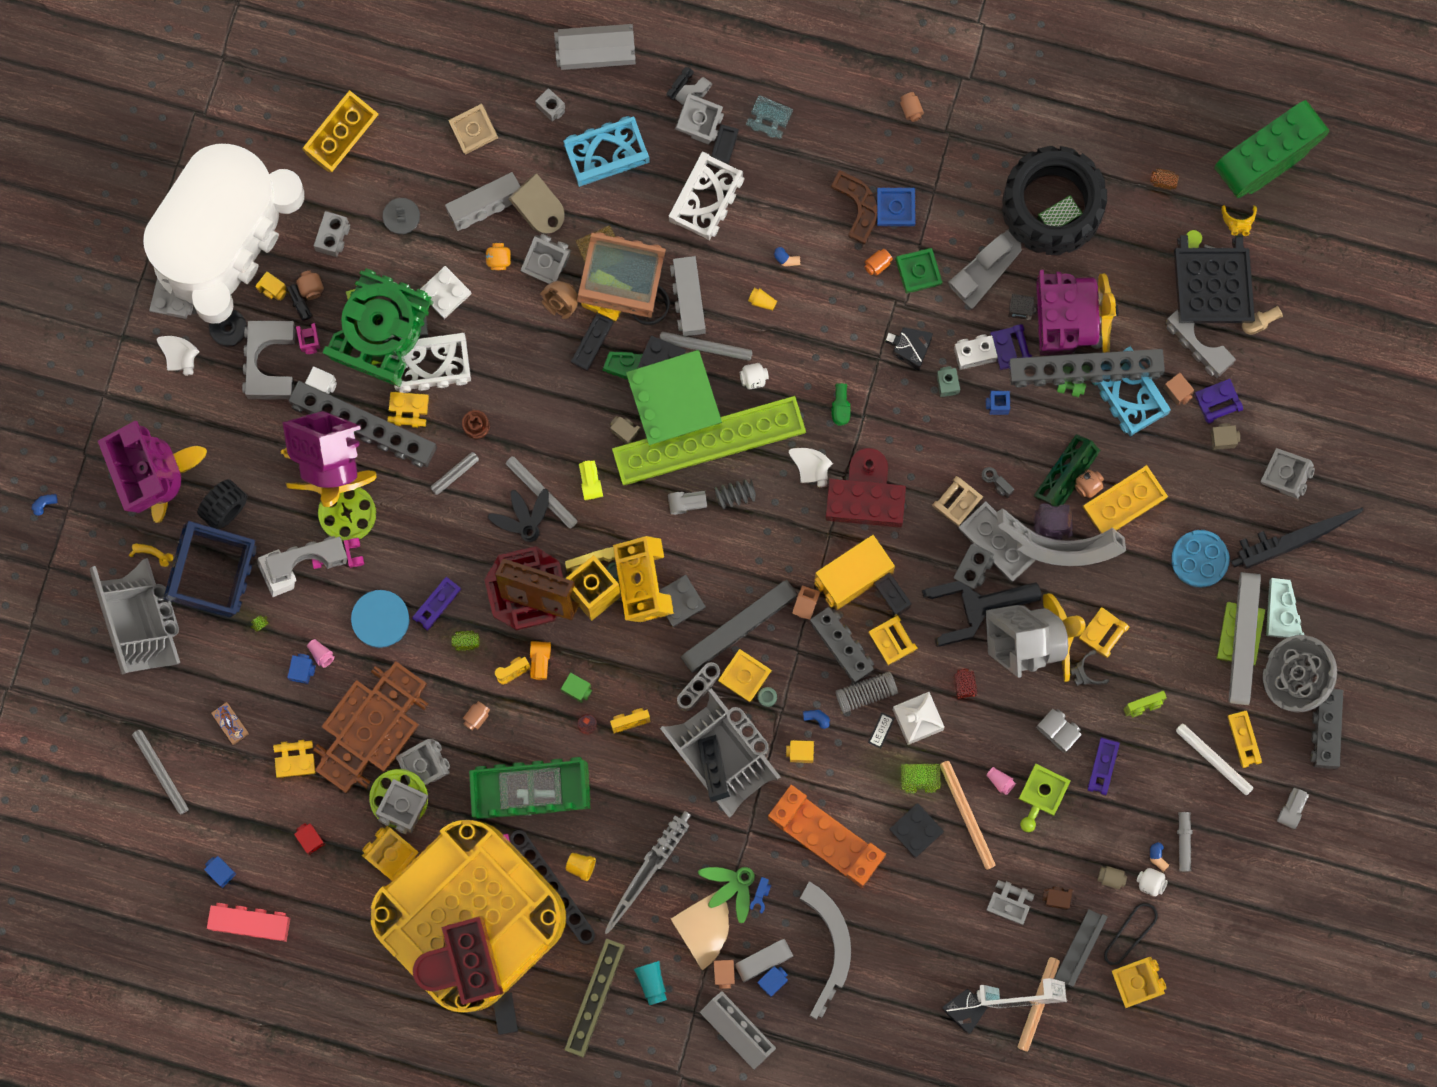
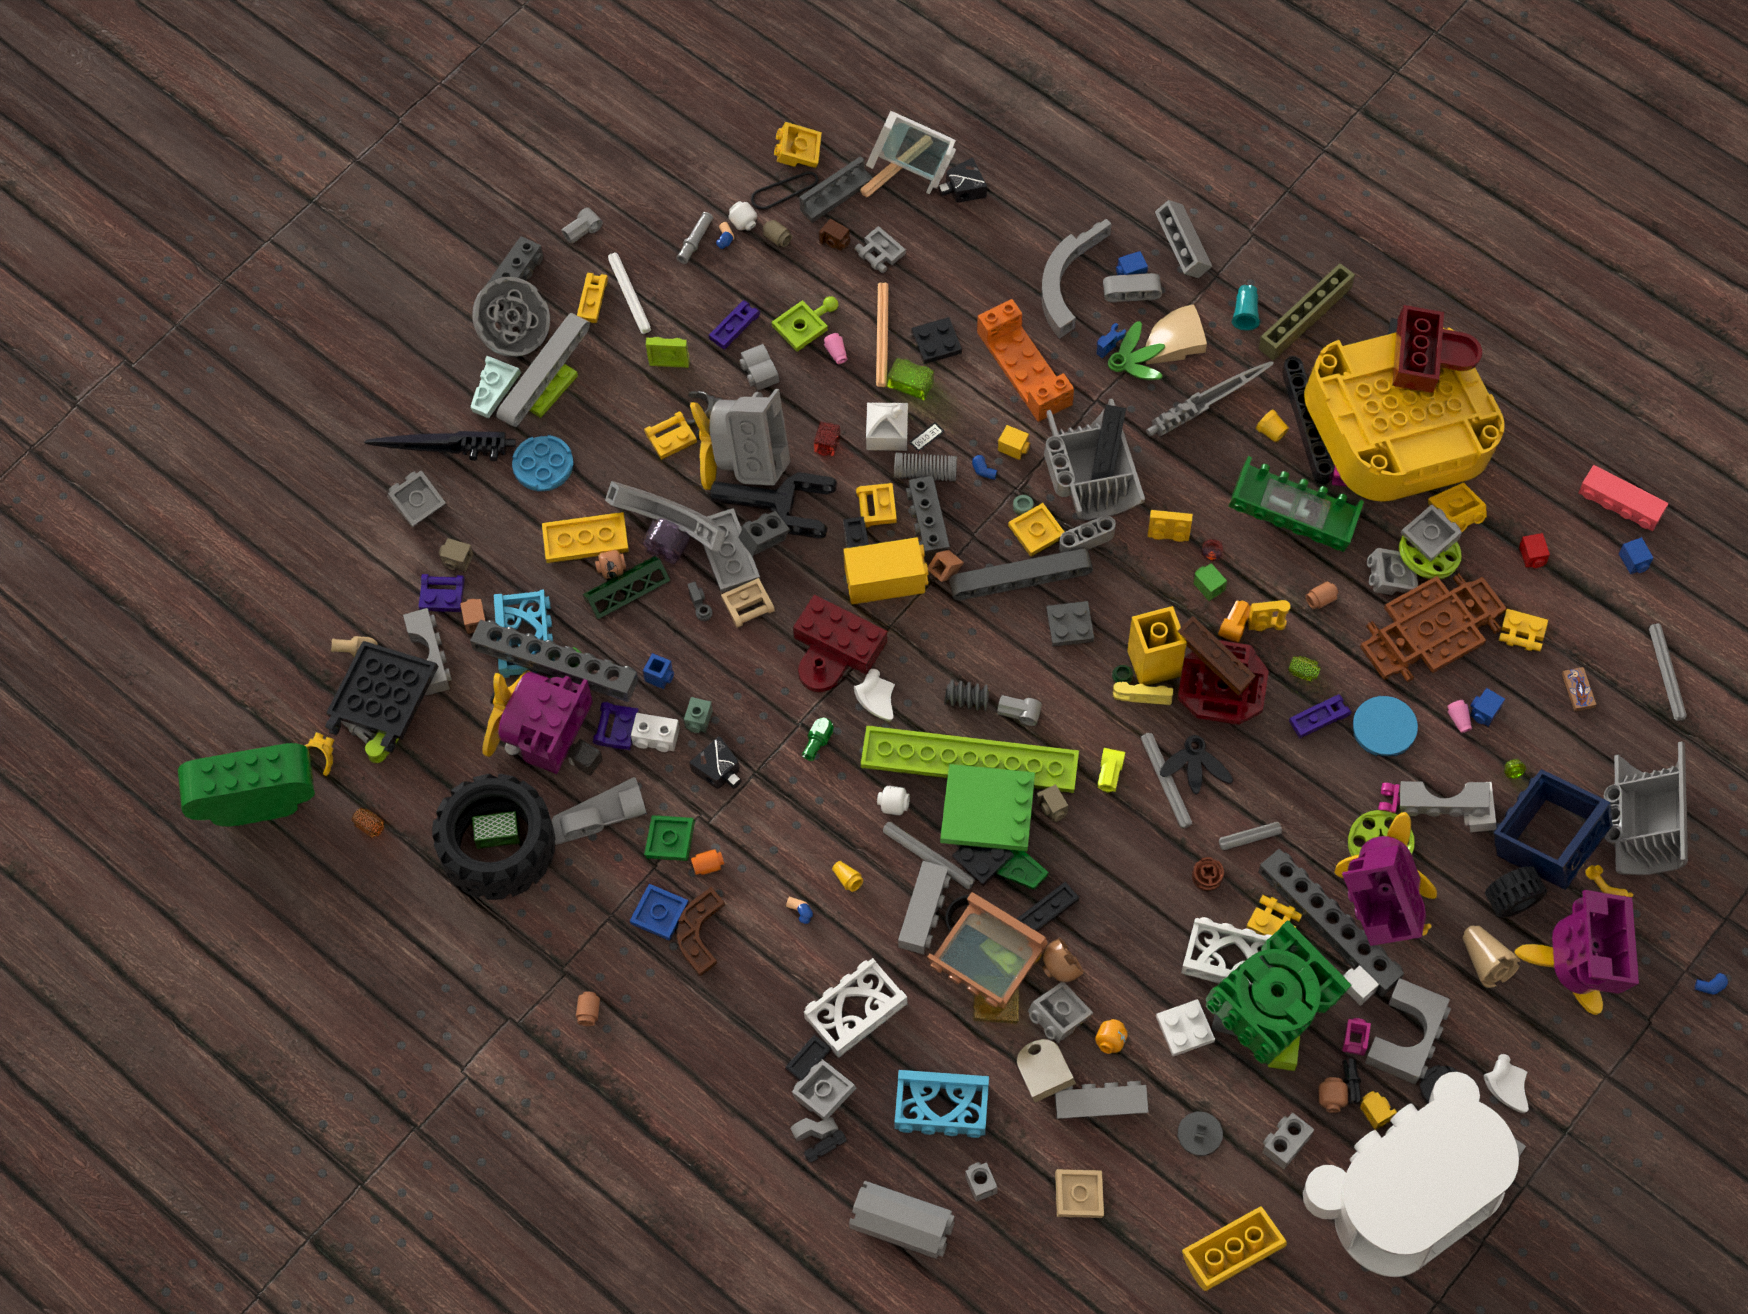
camera: 155 degrees left, 15 degrees down
(228, 447) = (1489, 956): none -> tan cone
(641, 600) = (1100, 664): yellow plate -> none
(724, 974) = (1174, 290): nougat brick -> none
(770, 111) = (740, 1070): clear light blue plate -> none

